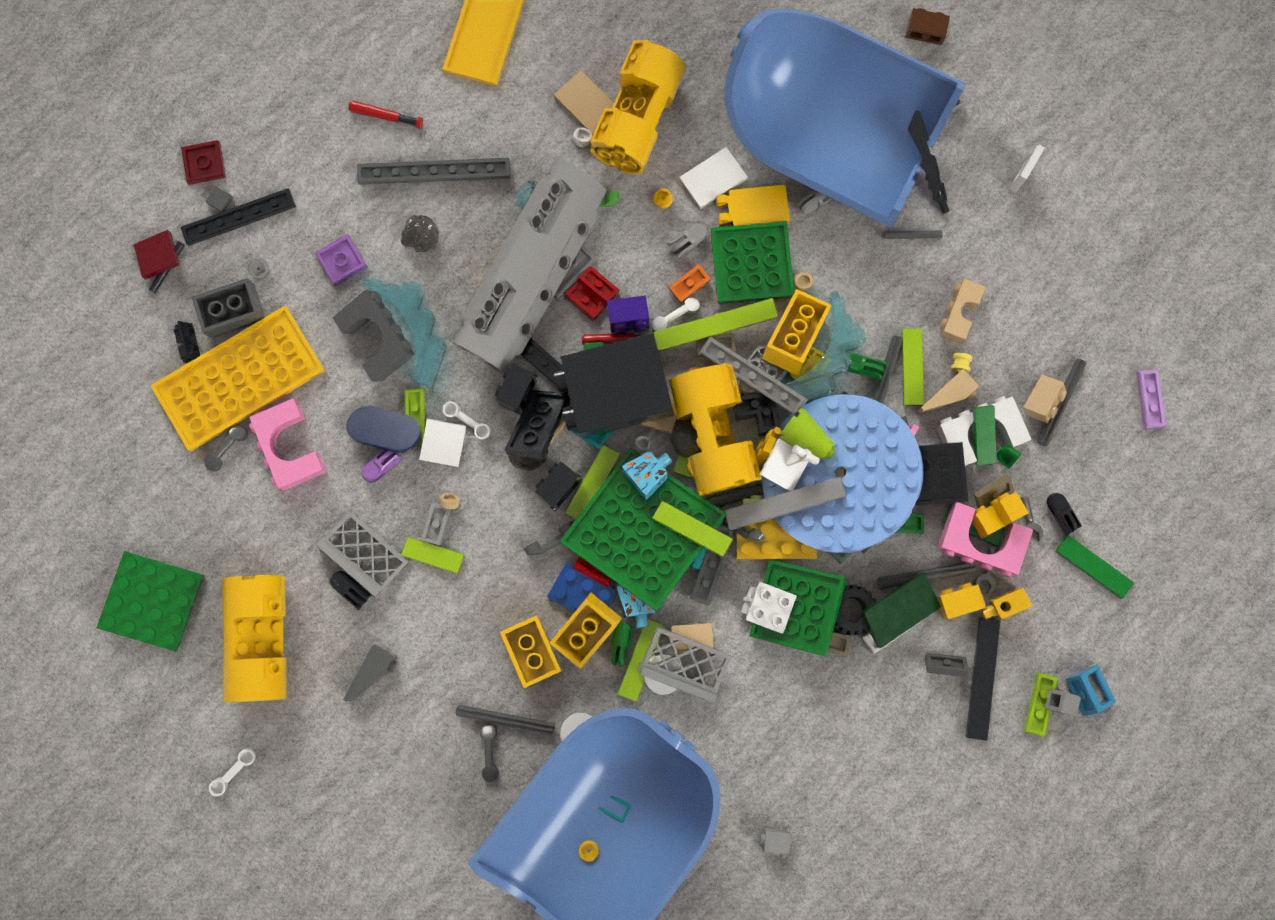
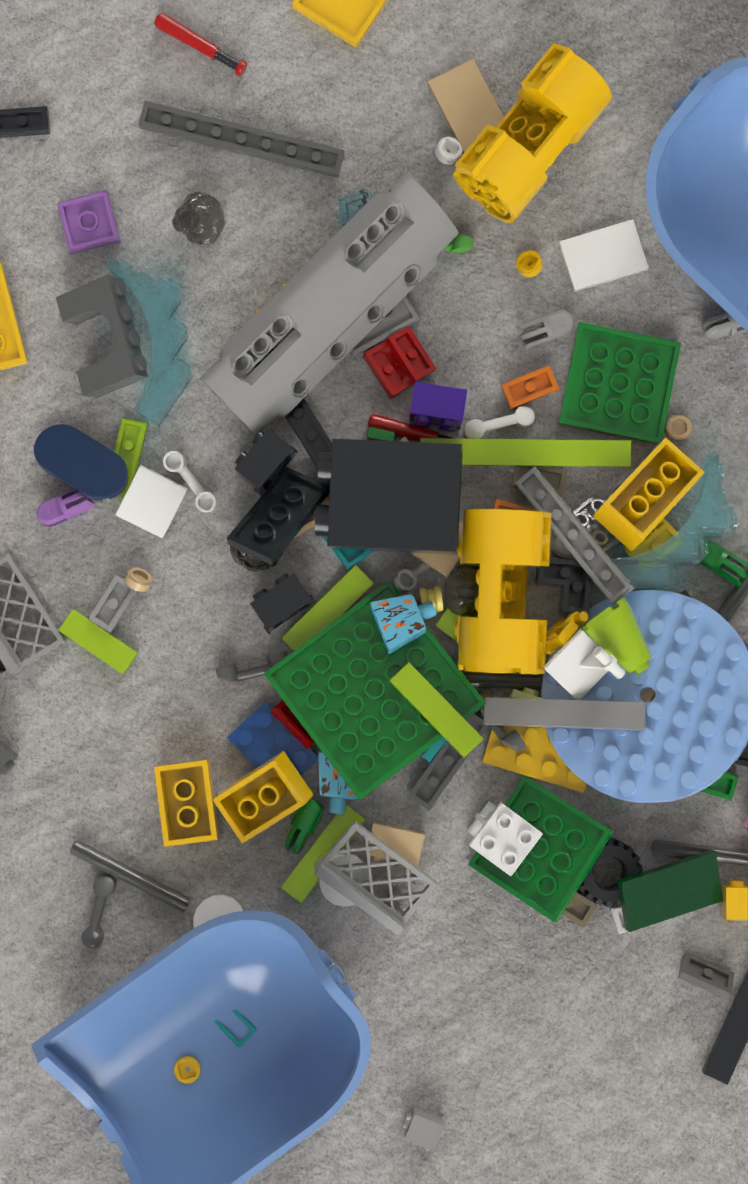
camera: 15 degrees right, 5 degrees up
(666, 448) = (432, 595): none -> light yellow wheel
(754, 206) = (646, 309): yellow tile -> none

